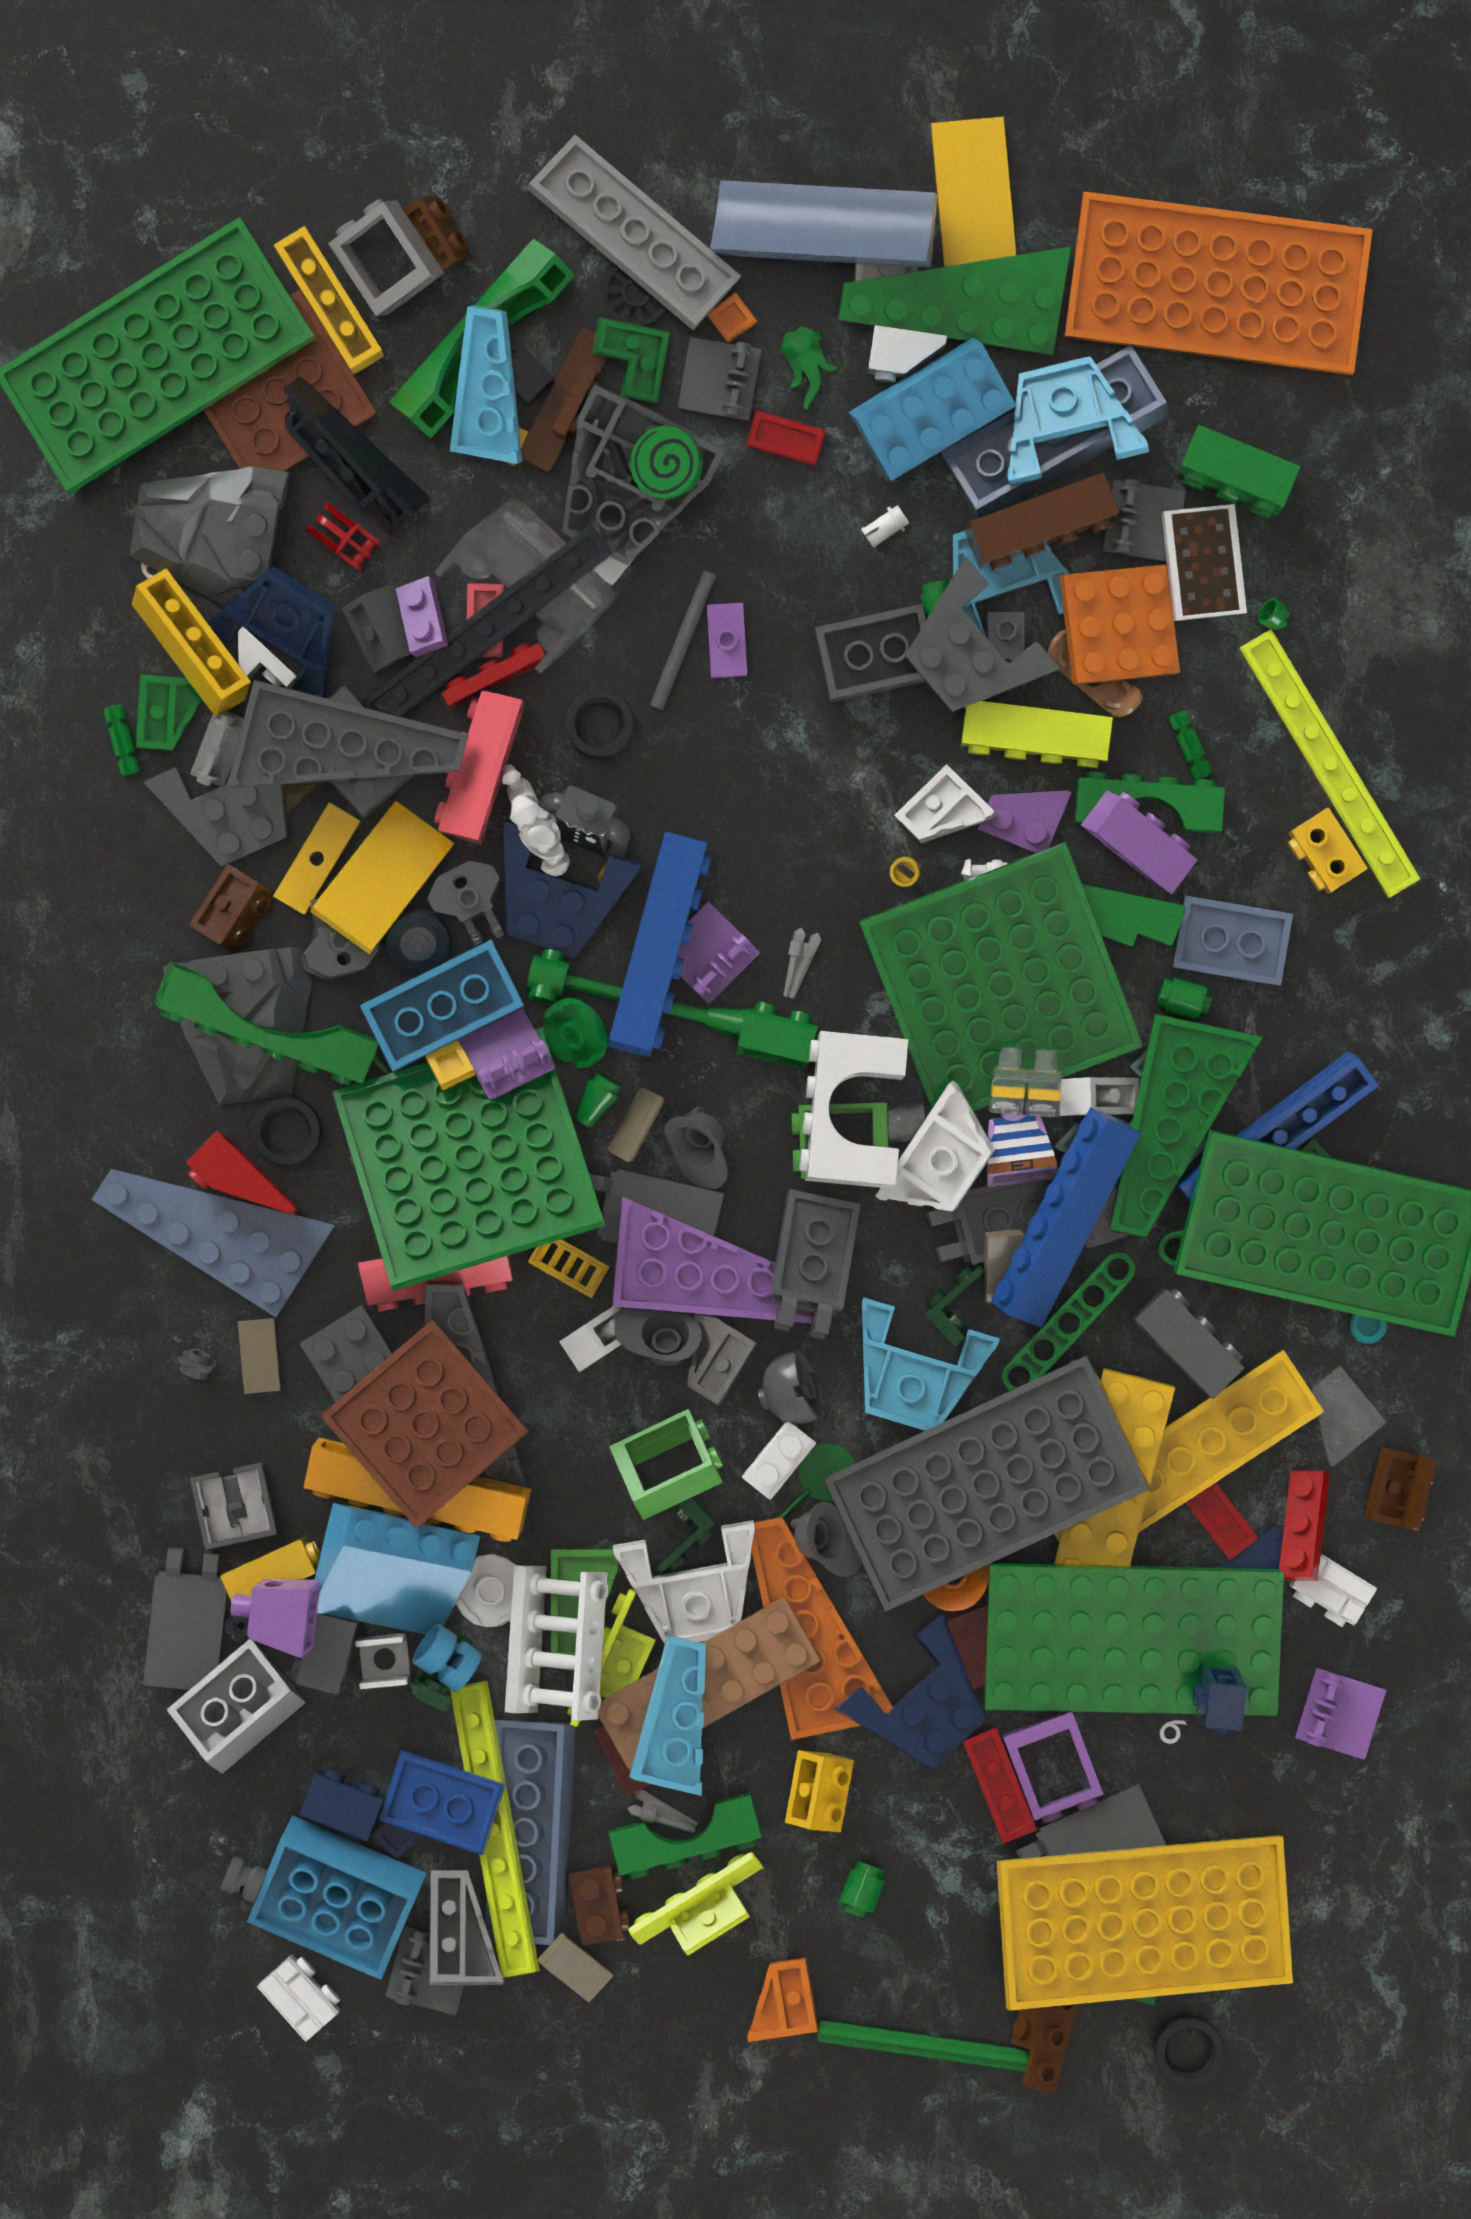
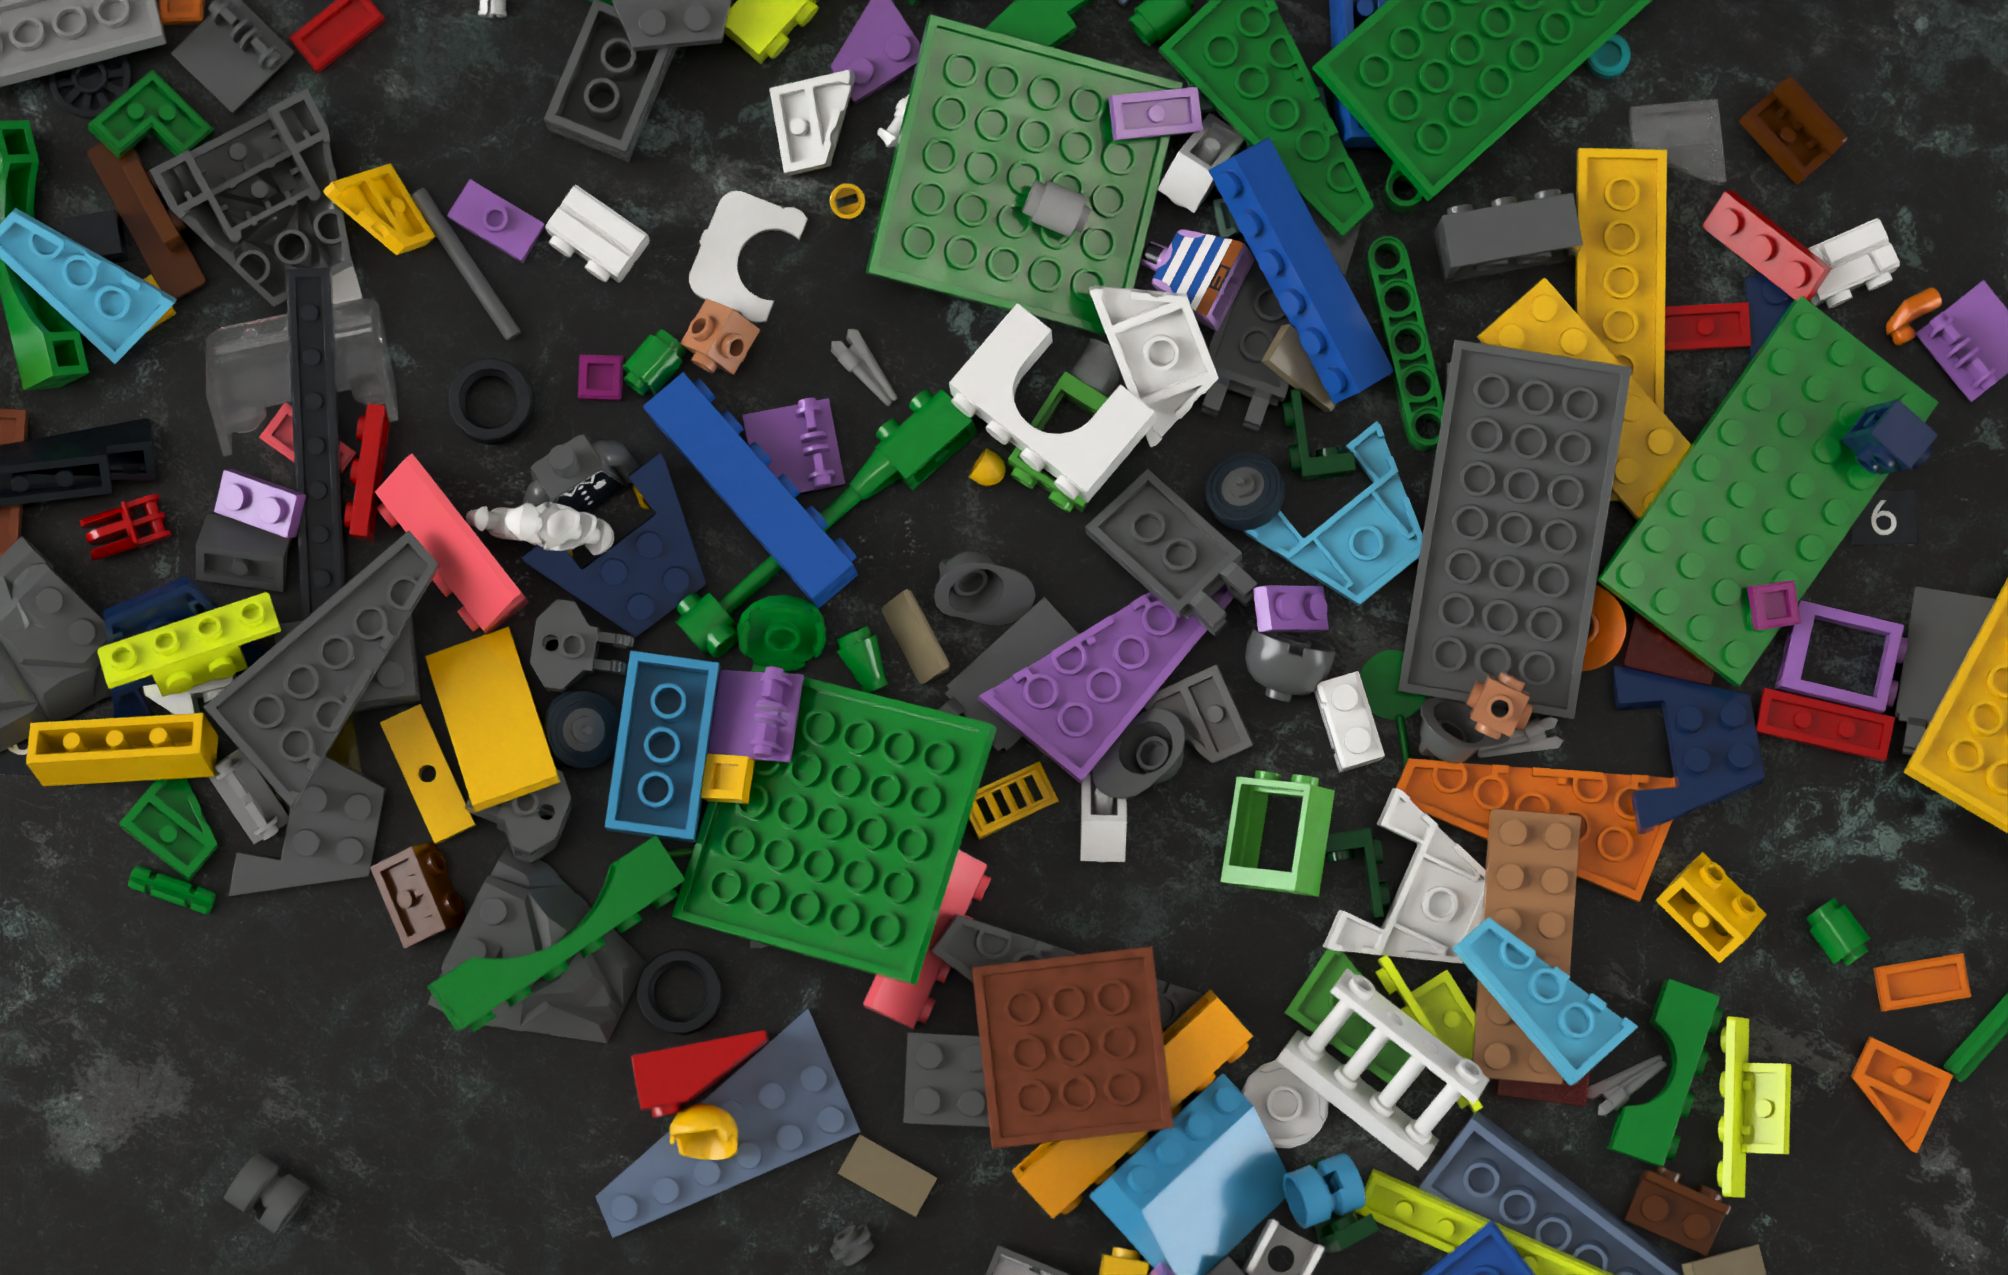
camera: 60 degrees left, 5 degrees down
(202, 1214) = (705, 1132): none -> yellow hair
(289, 643) = (192, 648): none -> neon yellow bracket
(666, 462) = (277, 153): green tile -> none
(668, 787) = (601, 378): none -> magenta tile
(680, 558) = (382, 207): none -> yellow wing
(701, 817) = (654, 363): none -> green brick
(748, 850) = (719, 337): none -> nougat brick
(763, 716) = (596, 235): none -> white brick
(785, 1094) = (988, 469): none -> yellow hinge
(828, 1368) = (1290, 608): none -> medium lavender plate
(836, 804) = (732, 226): none -> white piece
(853, 1589) = (1530, 739): none -> light grey piece
(868, 1969) = (1922, 982): none -> orange tile
(869, 1550) = (1499, 688): none -> nougat brick
(889, 1281) = (1245, 491): none -> black wheel
(993, 1021) = (1056, 208): none -> light grey brick
(1010, 1080) = (1148, 222): clear hips -> none
(1054, 1696) = (1774, 605): none -> magenta tile
(1106, 1043) = (1155, 113): none -> medium lavender plate
(1330, 1653) = (1908, 311): none -> orange arm

